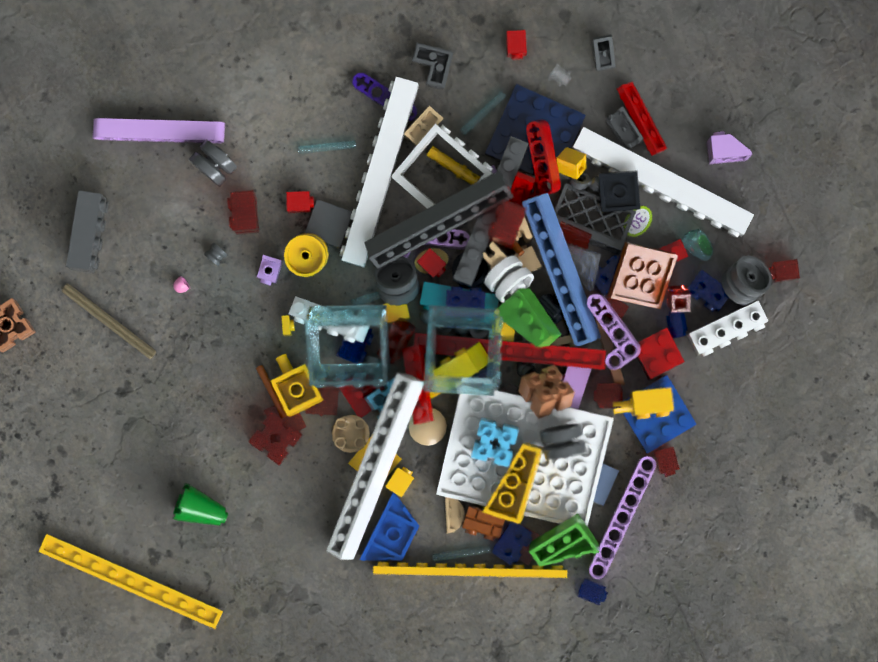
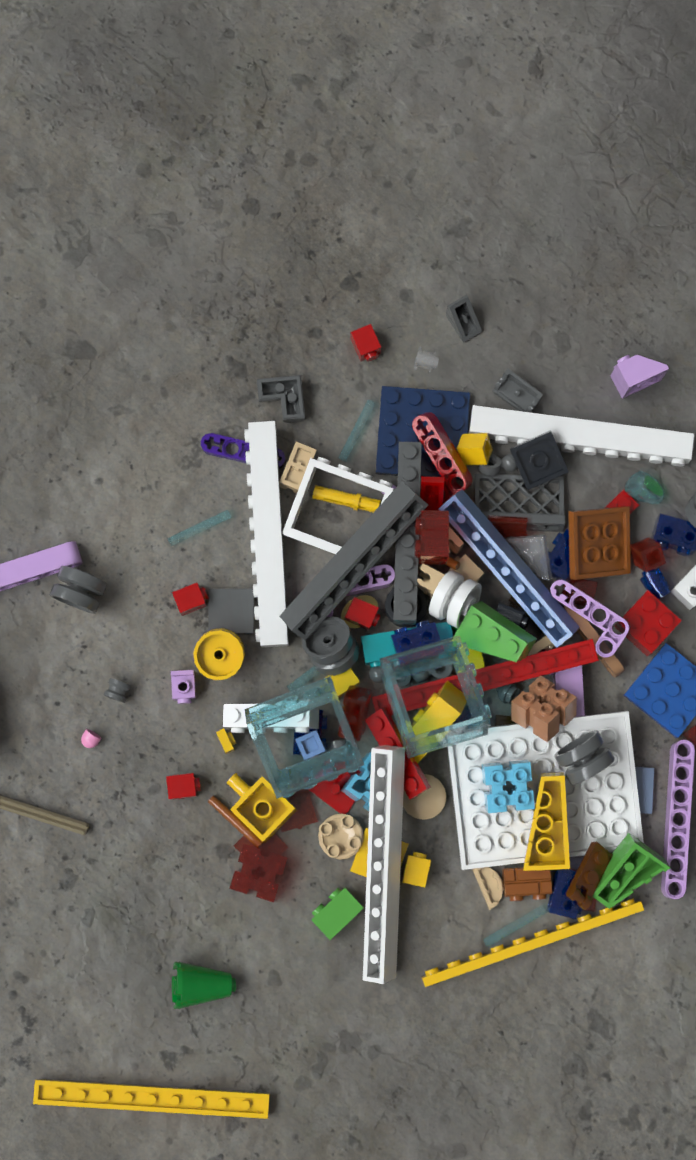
camera: 25 degrees left, 5 degrees down
(240, 349) = (183, 786): none -> red brick
(244, 212) = (133, 631): clear red brick -> none
(325, 492) = (336, 913): none -> bright green brick
(351, 353) = (310, 745): none -> medium blue plate
(392, 534) = (429, 933): blue wing -> none
(533, 534) = (589, 875): none -> reddish brown plate
(592, 592) = (677, 915): clear blue brick -> none
(608, 393) = (612, 689): clear red brick -> none
(640, 222) = (572, 487): sticker -> none
(641, 118) = (531, 374): red plate -> none
(646, 403) = (657, 681): yellow brick -> none

